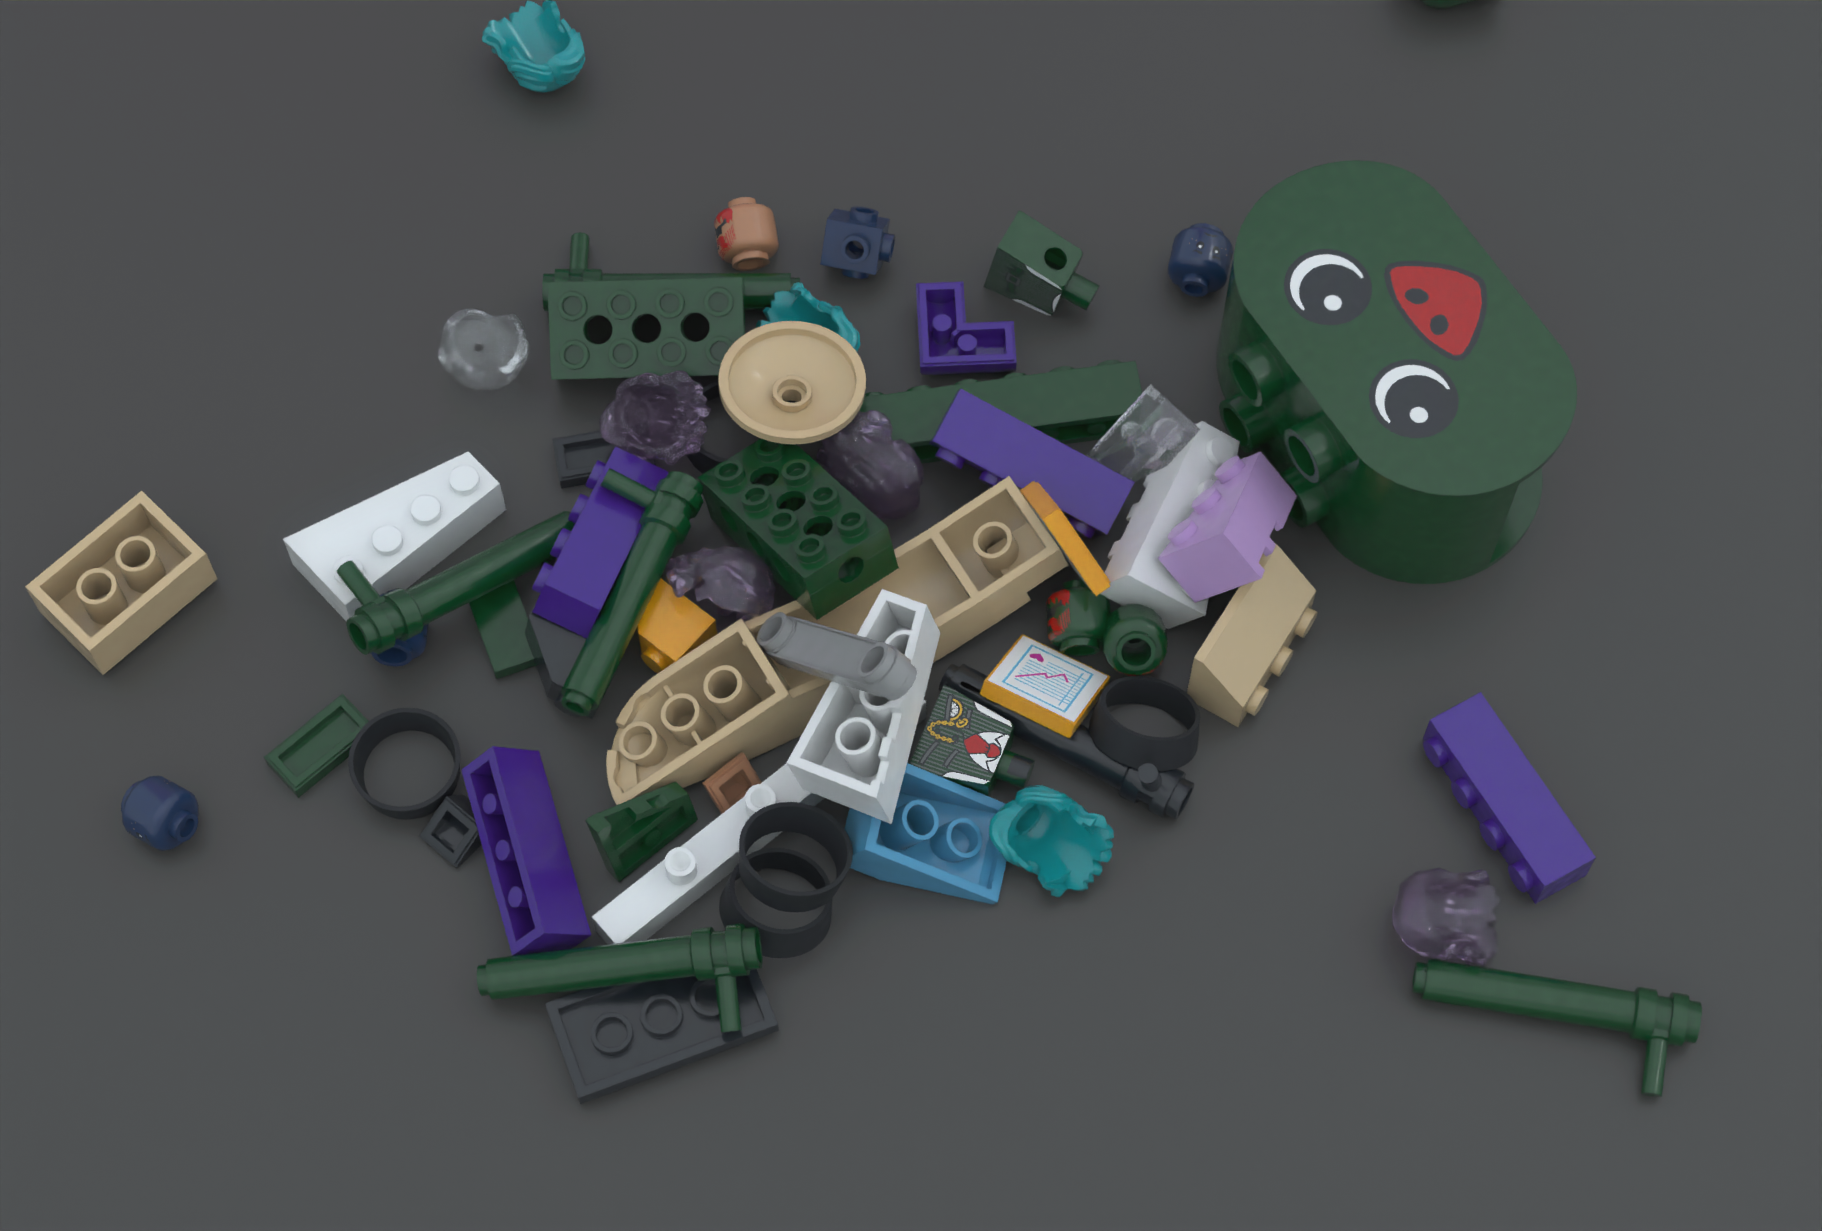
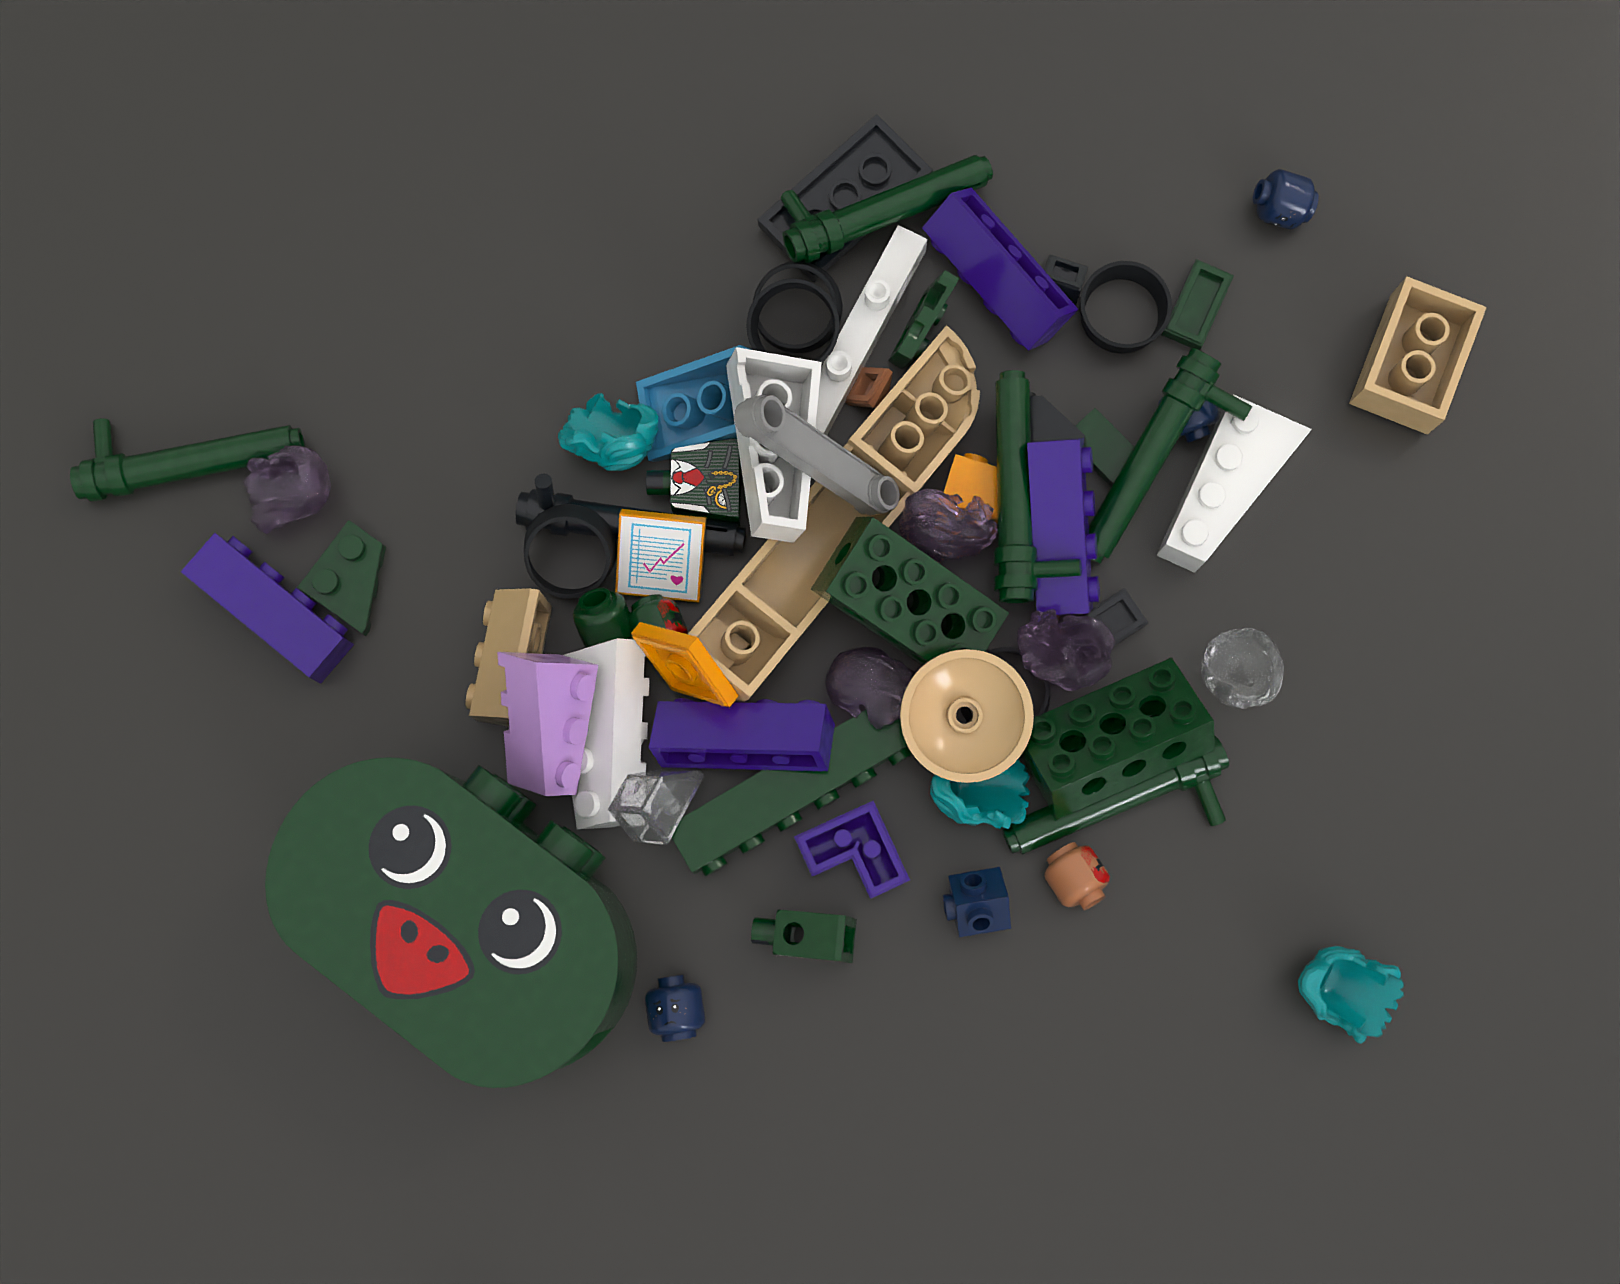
camera: 160 degrees right, 15 degrees up
(1407, 807) = (347, 576): none -> dark green wing

